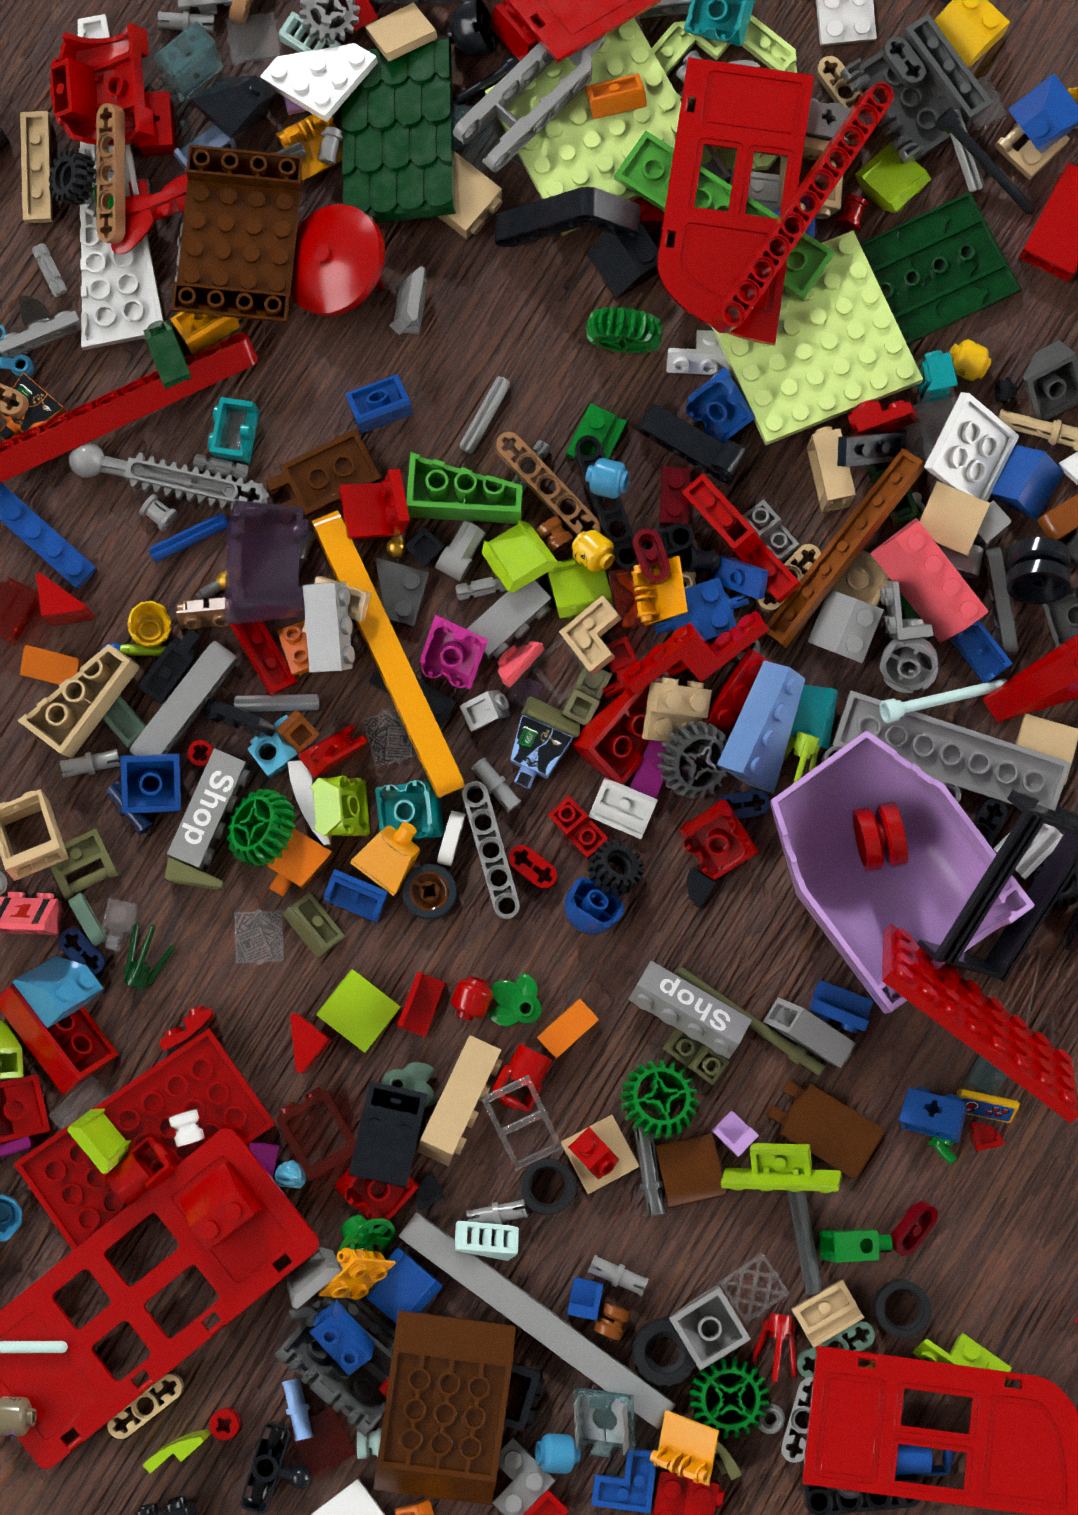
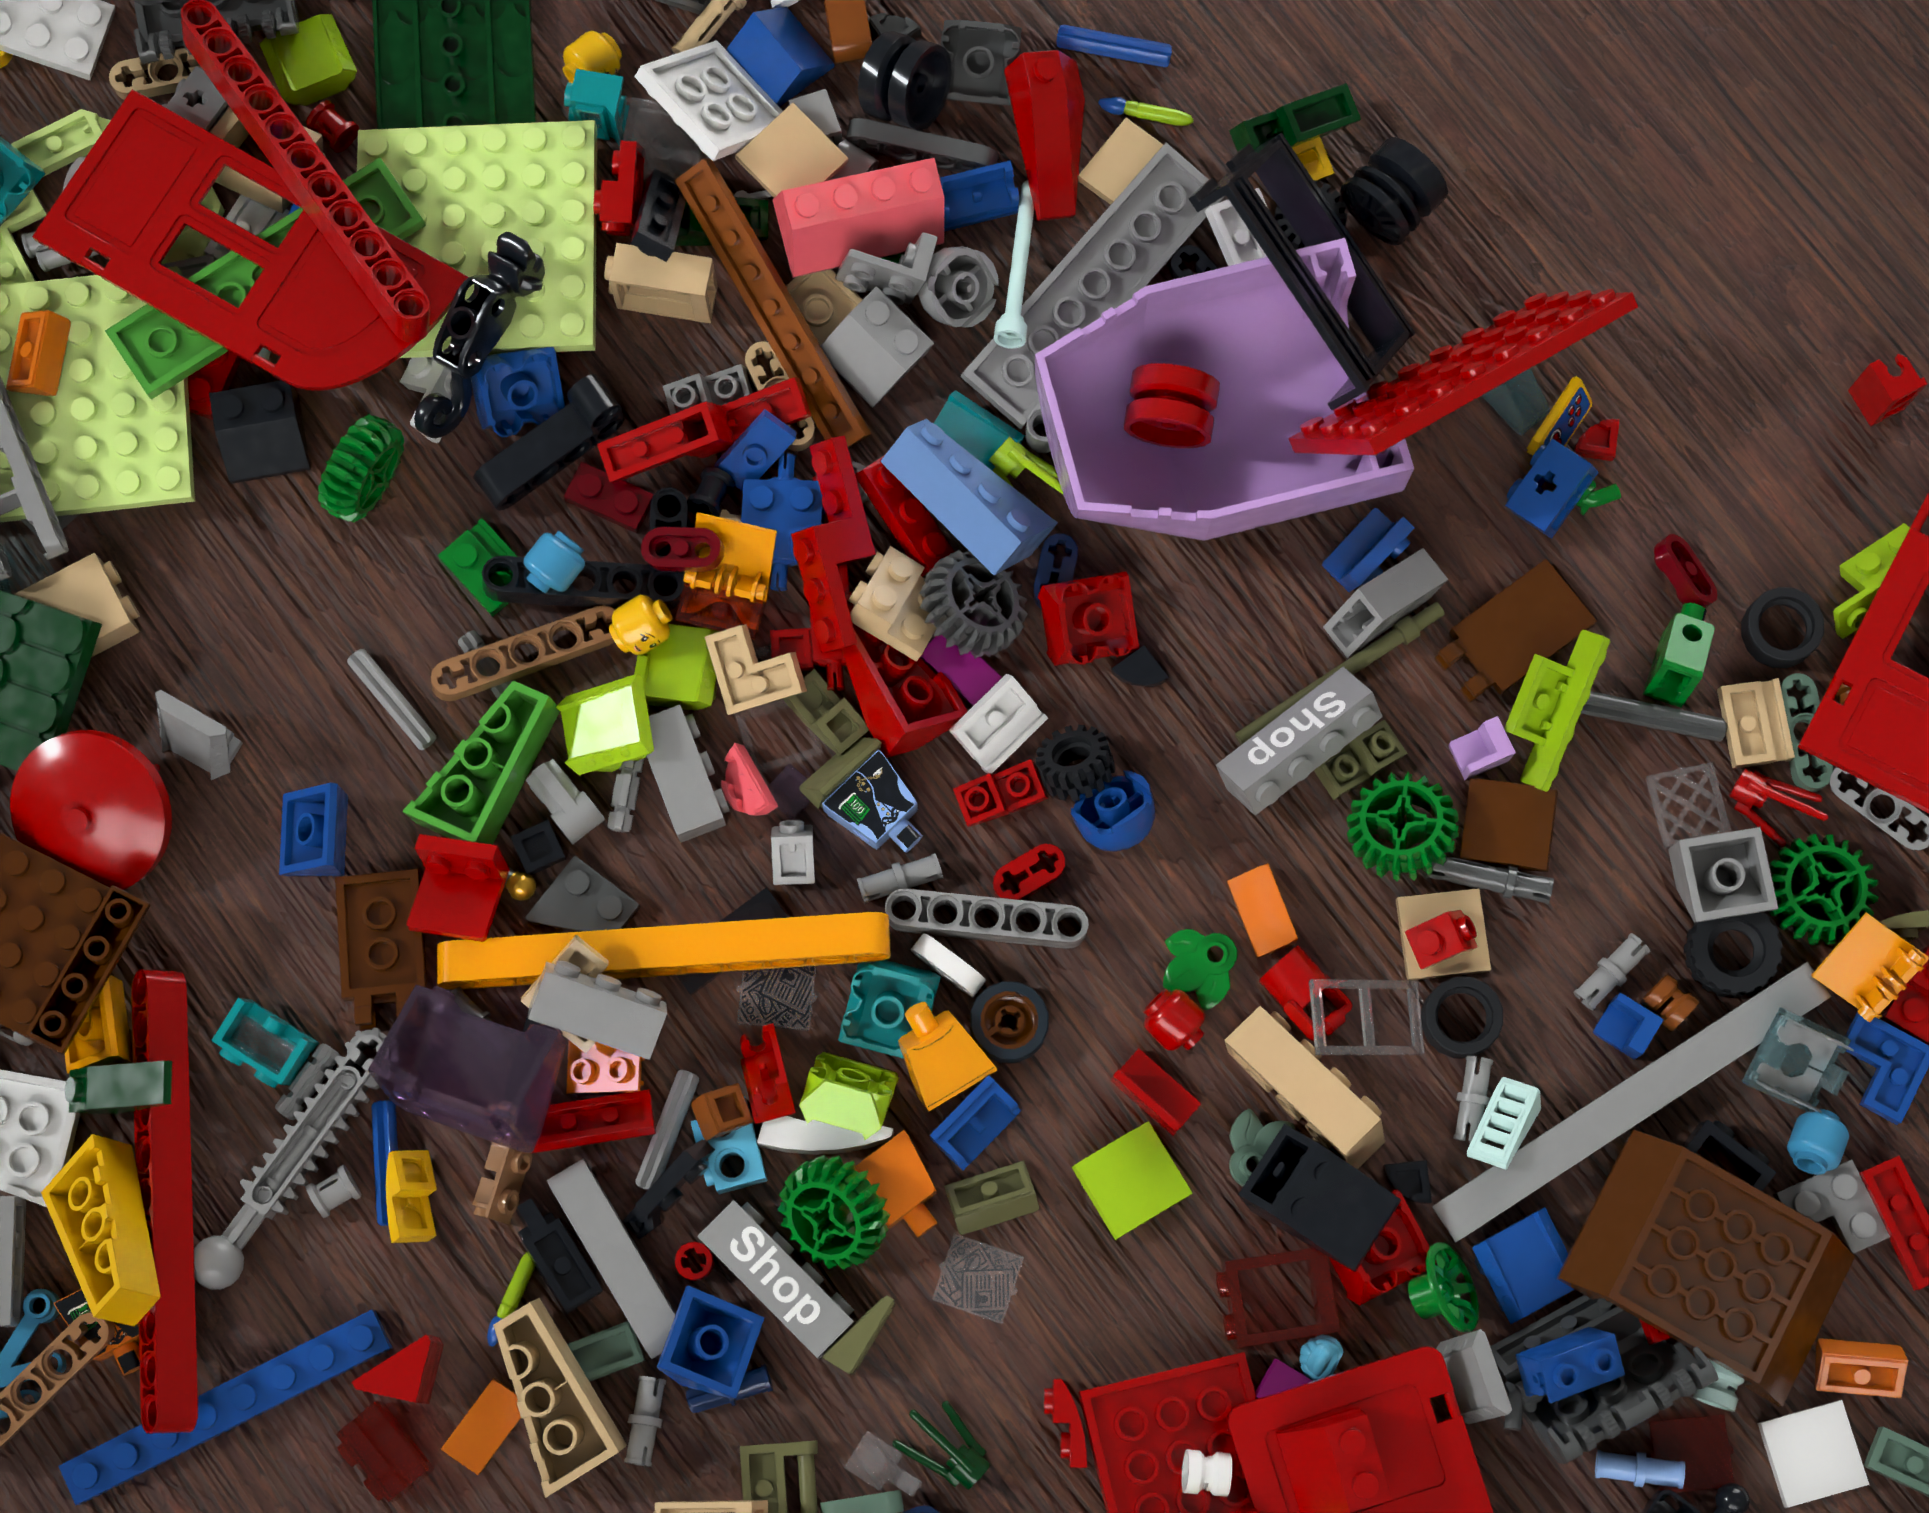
camera: 70 degrees left, 5 degrees down
(76, 383) = (105, 1229): none -> yellow wedge
(149, 624) = (486, 1262): yellow hair -> none
(174, 558) = (407, 1191): none -> yellow slope
(212, 588) = (470, 1154): flat silver piece -> none
(307, 1042) = (1152, 1261): red slope -> none
(358, 1275) = (1487, 1304): light orange hinge -> none
(452, 653) = (699, 864): dark pink slope -> none
(554, 535) = (594, 669): dark orange wheel -> none
(567, 212) = (170, 479): black beam -> none
(744, 363) = (477, 327): none -> black animal
(779, 1421) = (1873, 842): light grey plate -> none
(1005, 390) = (650, 33): black plate -> none

